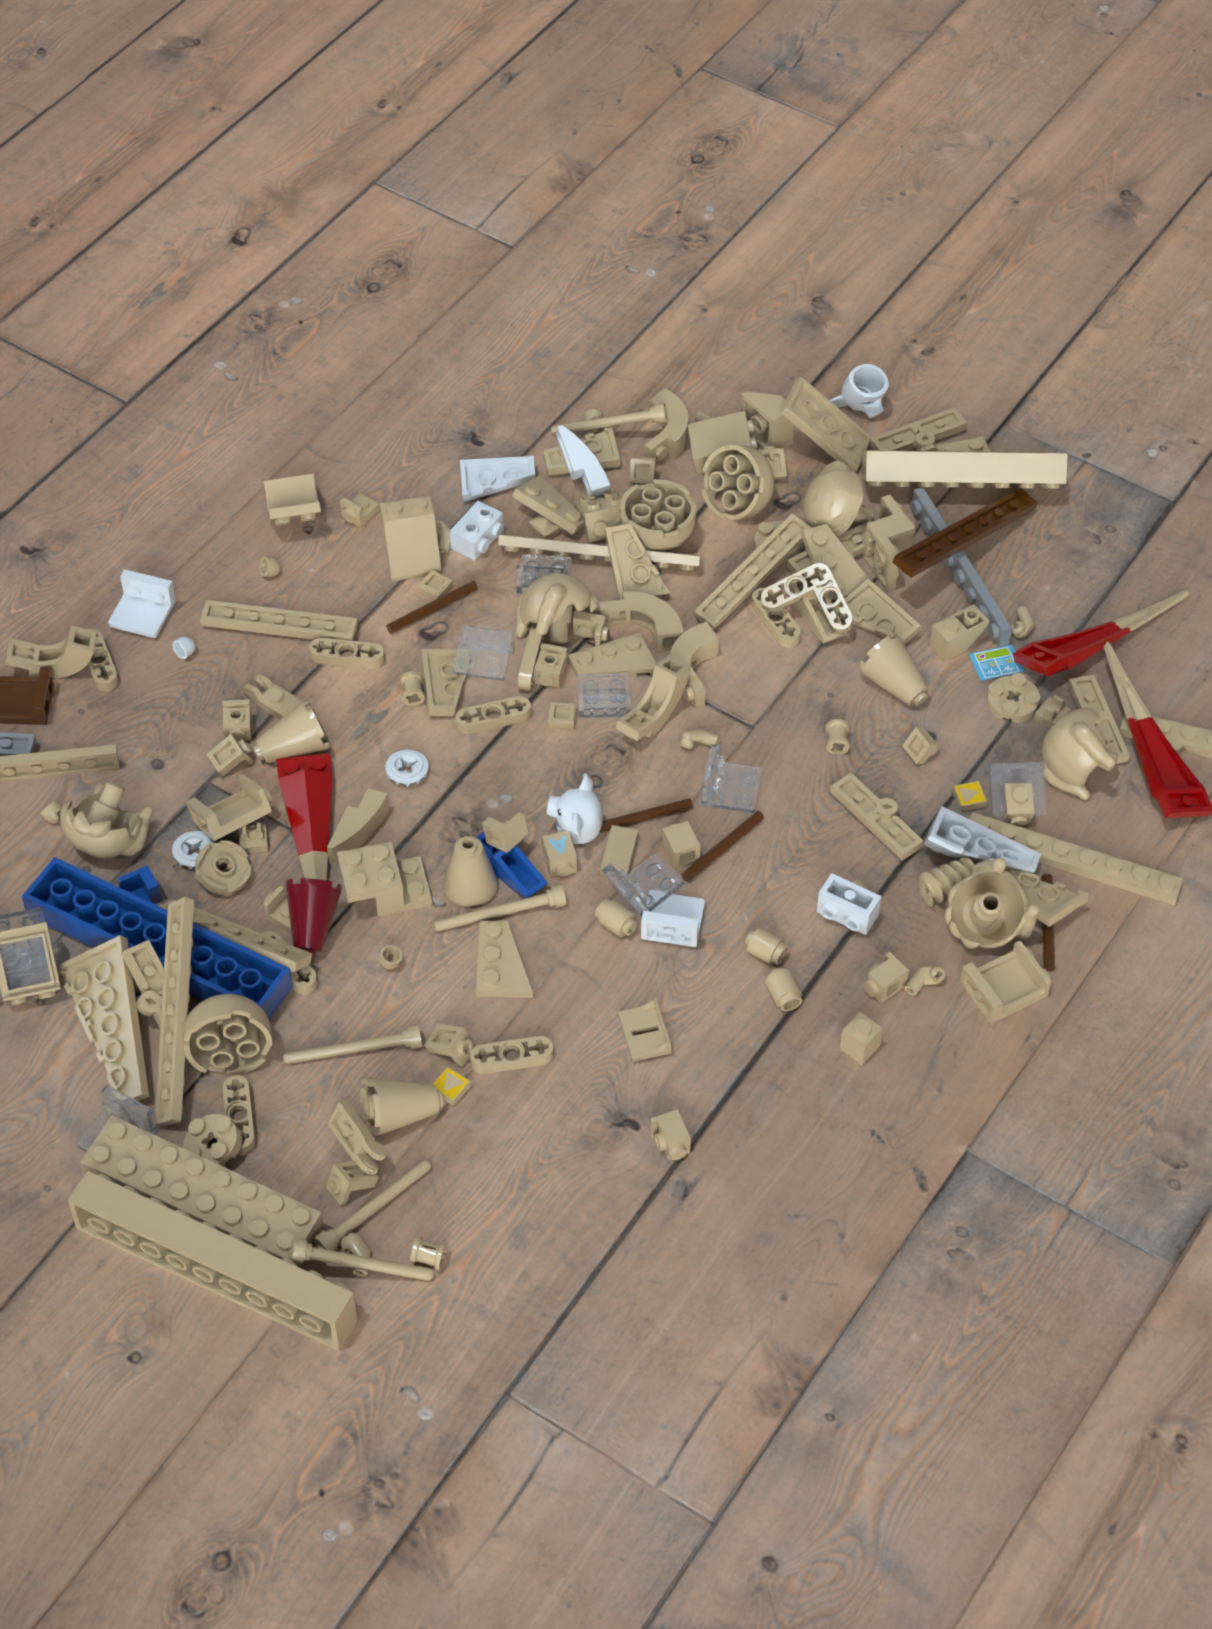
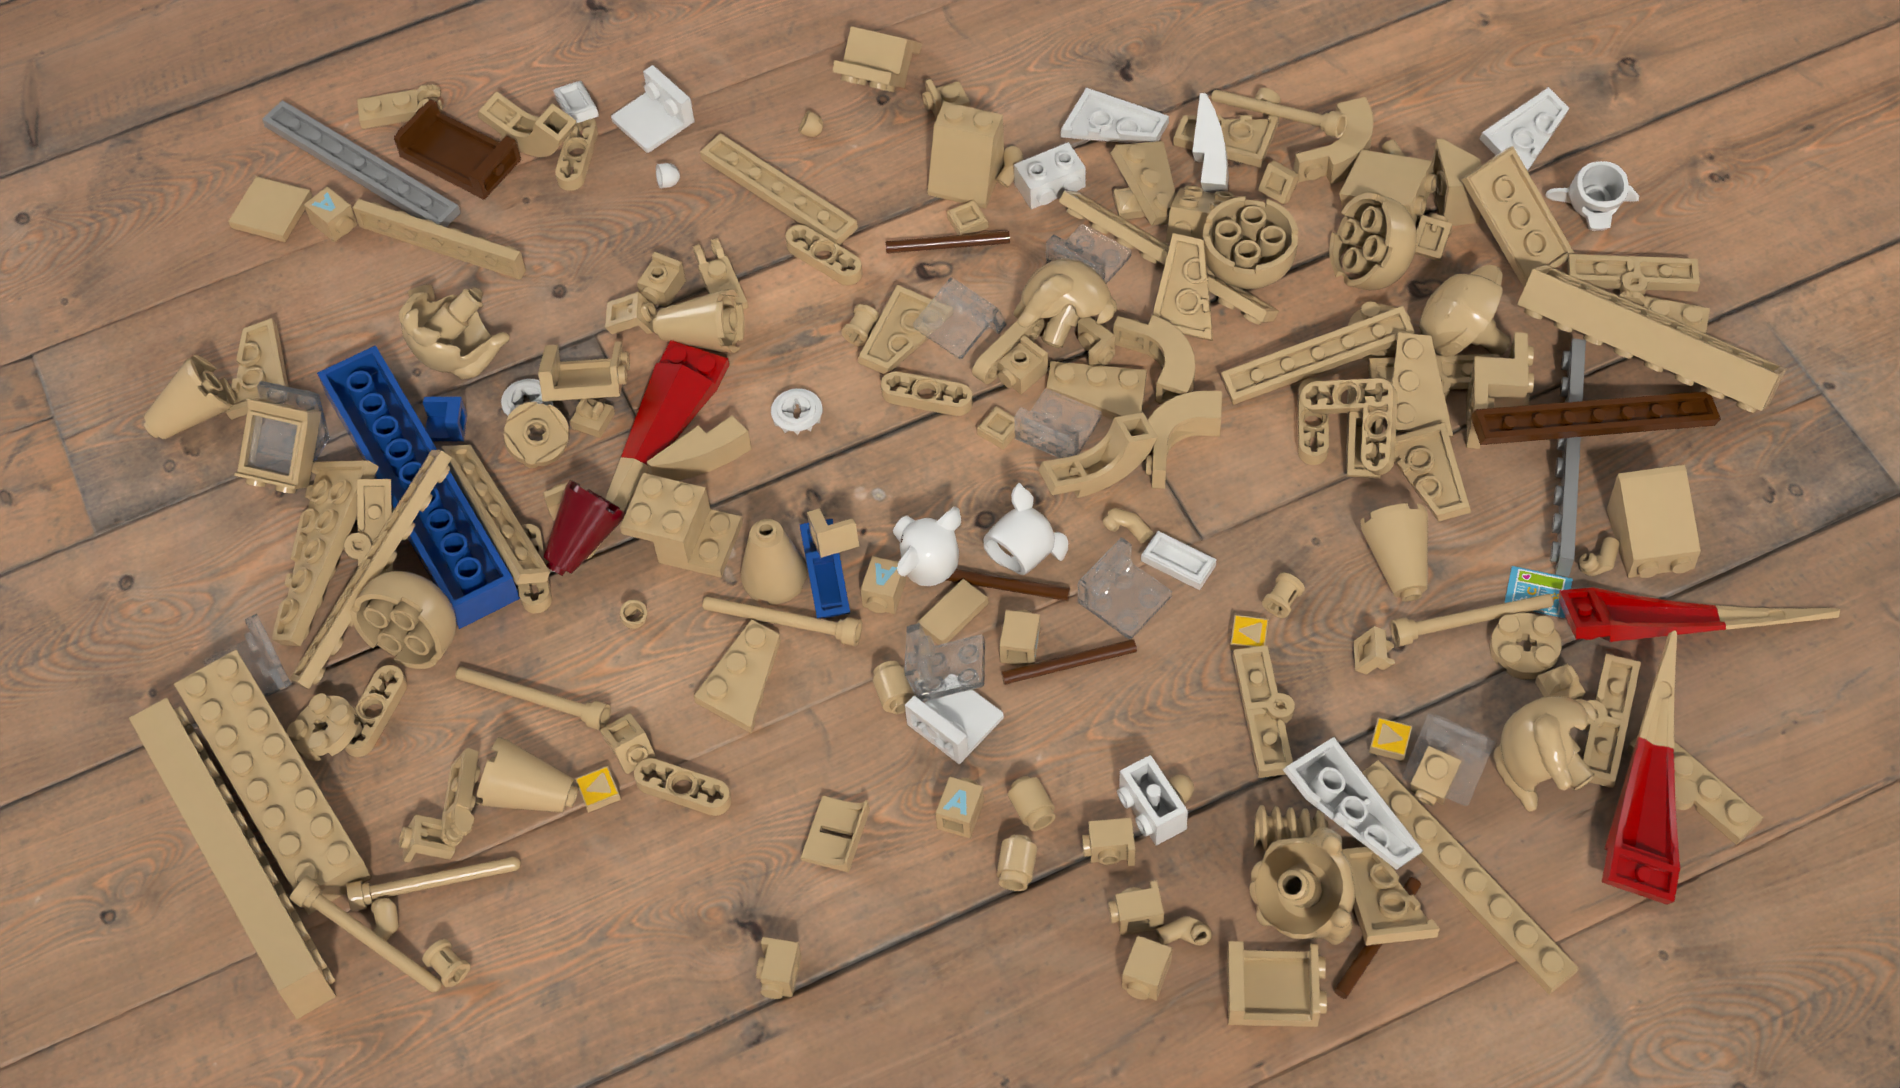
camera: 35 degrees right, 5 degrees up
(65, 618) = (576, 101): none -> white tile
(638, 770) = (1025, 535): none -> white piece
(719, 972) = (960, 806): none -> tan brick
(749, 747) = (1178, 560): none -> white tile
(783, 367) = (1527, 127): none -> white wing
(830, 772) = (1248, 632): none -> tile
(837, 945) = (1110, 841): none -> tan brick
(861, 1038) = (1059, 965): tan brick -> none
(918, 1012) = (1146, 969): none -> tan brick
(933, 722) = (1406, 630): none -> tan piece
(957, 632) = (1509, 534): tan slope -> none
(1044, 583) = (1654, 521): none -> tan slope

